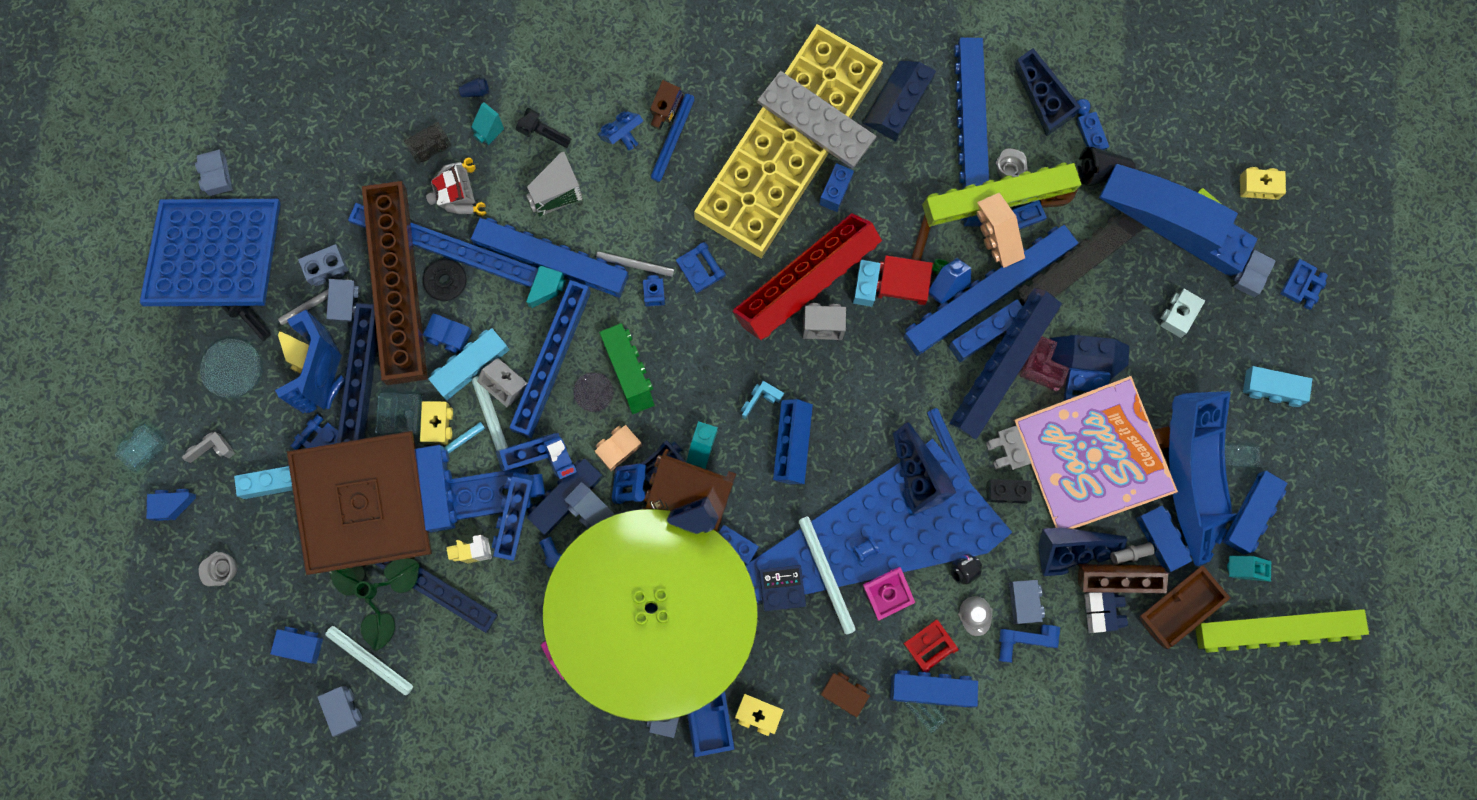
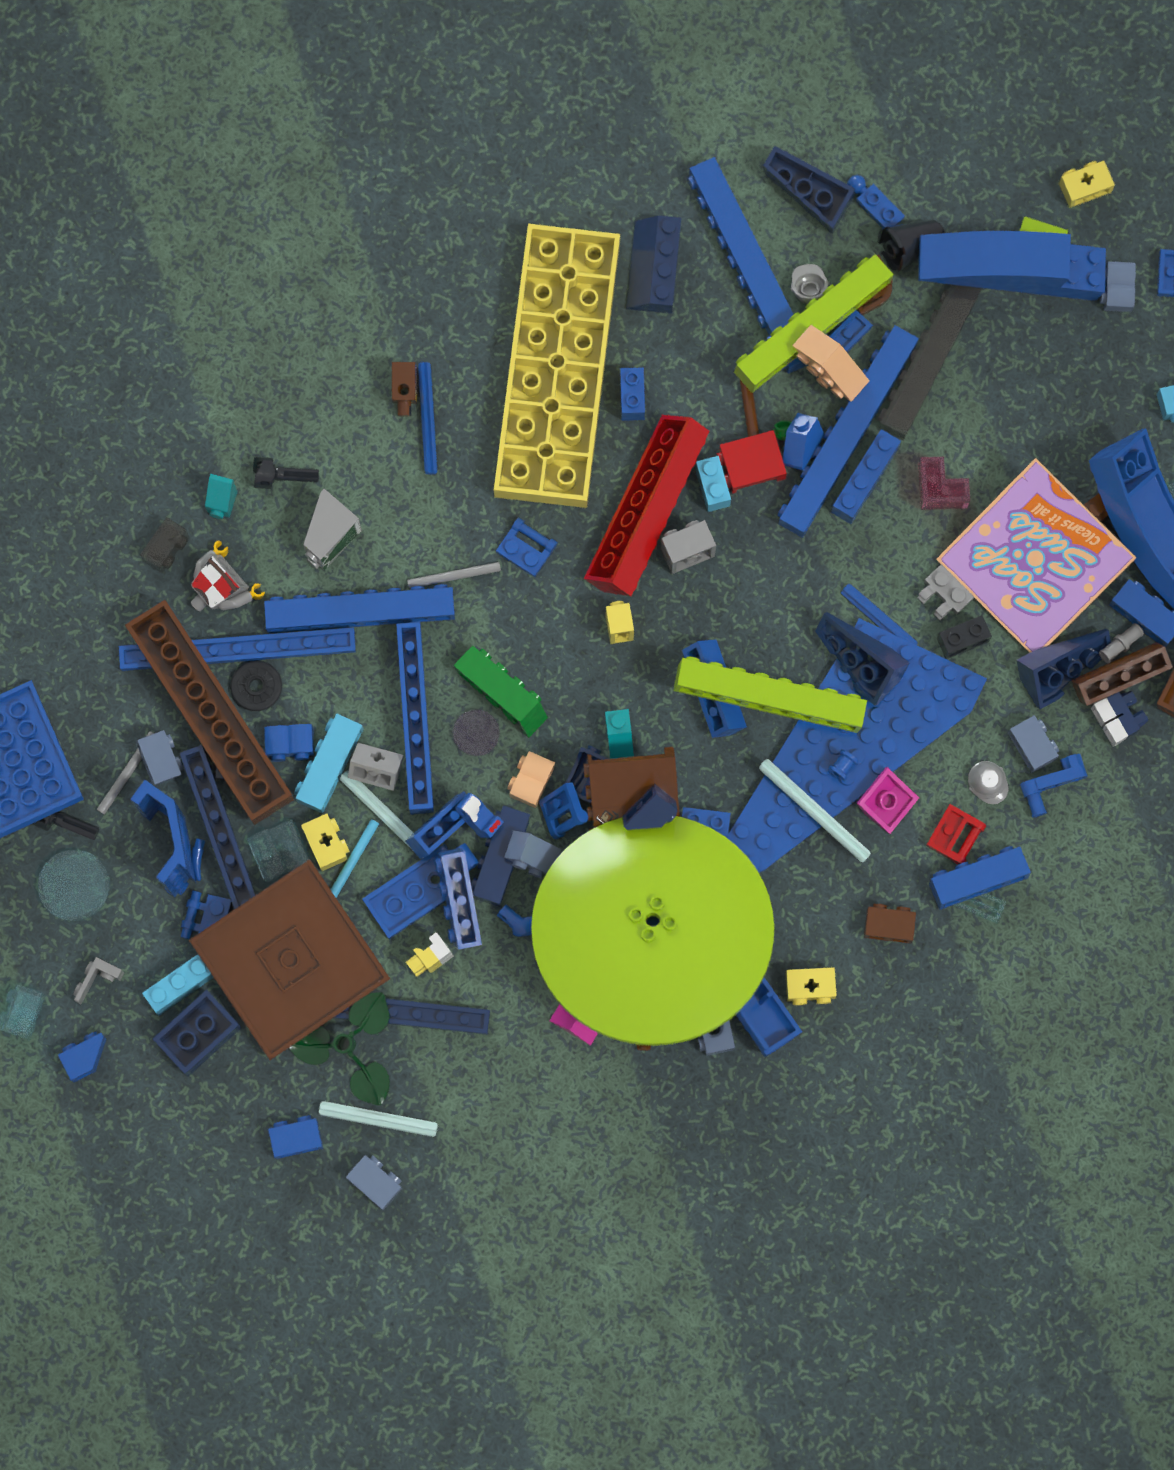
camera: 20 degrees left, 0 degrees up
(217, 569) = (171, 1099): light grey hat -> none
(261, 527) = (197, 1033): none -> dark blue brick
(294, 351) = (139, 835): light yellow slope -> none
(323, 260) = (113, 726): sand blue brick -> none
(435, 488) = (361, 908): blue brick -> none
(474, 88) = (184, 461): dark blue cone -> none
(545, 286) = (370, 642): teal slope -> none
(621, 129) = (369, 434): blue plate -> none
(653, 298) = (489, 603): blue brick -> none
(743, 356) = (619, 622): none -> light yellow brick
(770, 394) = (667, 648): medium azure bracket -> none
(782, 588) = (774, 845): dark blue plate -> none
(816, 119) = (578, 330): light grey plate -> none
(833, 467) = (770, 695): none -> lime brick
(966, 569) = (956, 738): black head -> none
(1005, 363) = (899, 503): dark blue brick -> none
(1084, 381) = (991, 484): blue plate -> none
(1091, 353) = (986, 455): dark blue wedge -> none
(1190, 306) = (1067, 352): light aqua brick -> none

